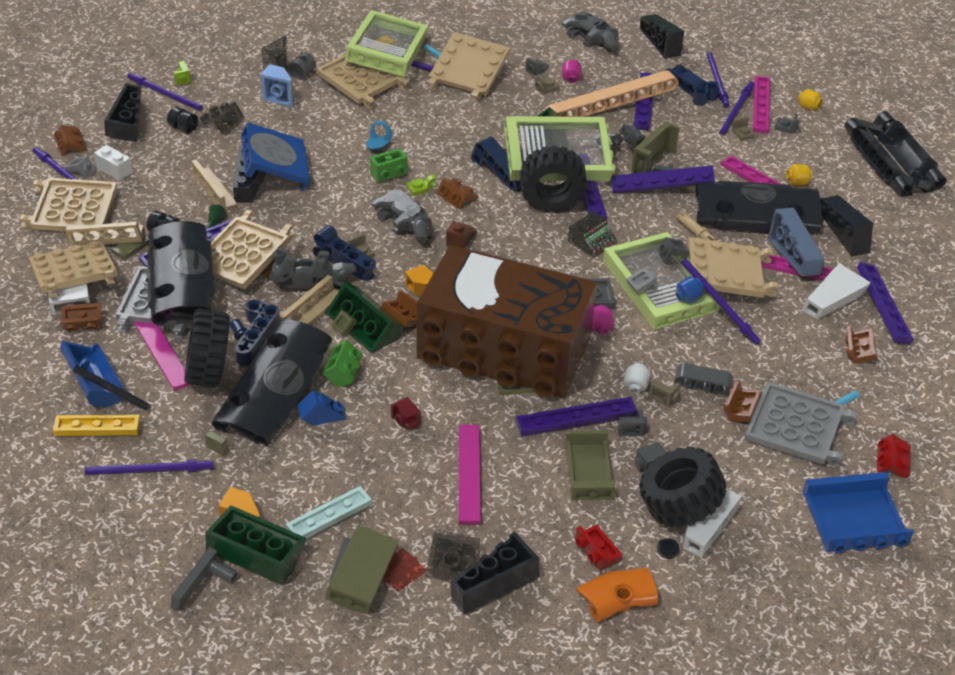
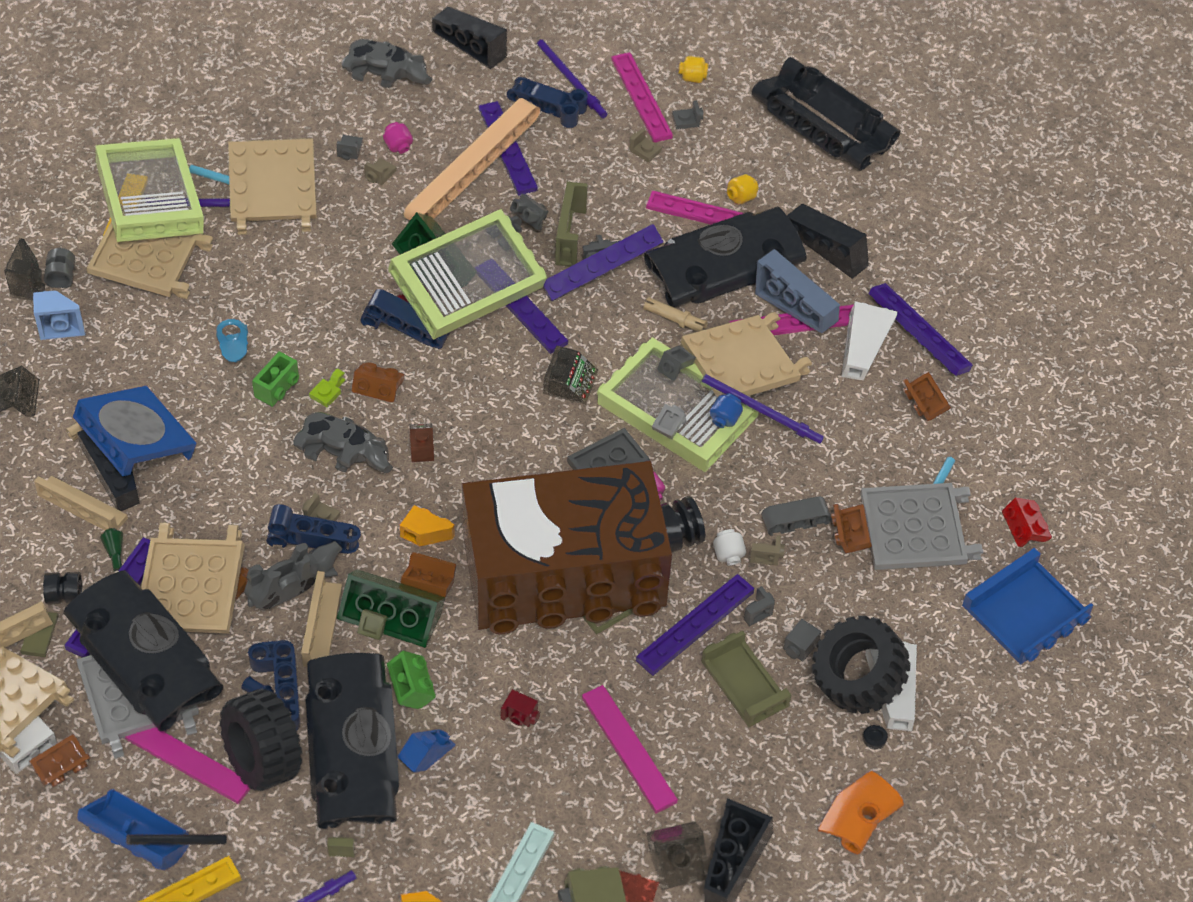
camera: 30 degrees left, 10 degrees up
(553, 161) = (491, 322): black tyre -> none
(597, 546) = (810, 770): red bracket -> none
(605, 346) = (683, 523): none -> black wheel
(746, 92) = (615, 87): dark purple bar -> none

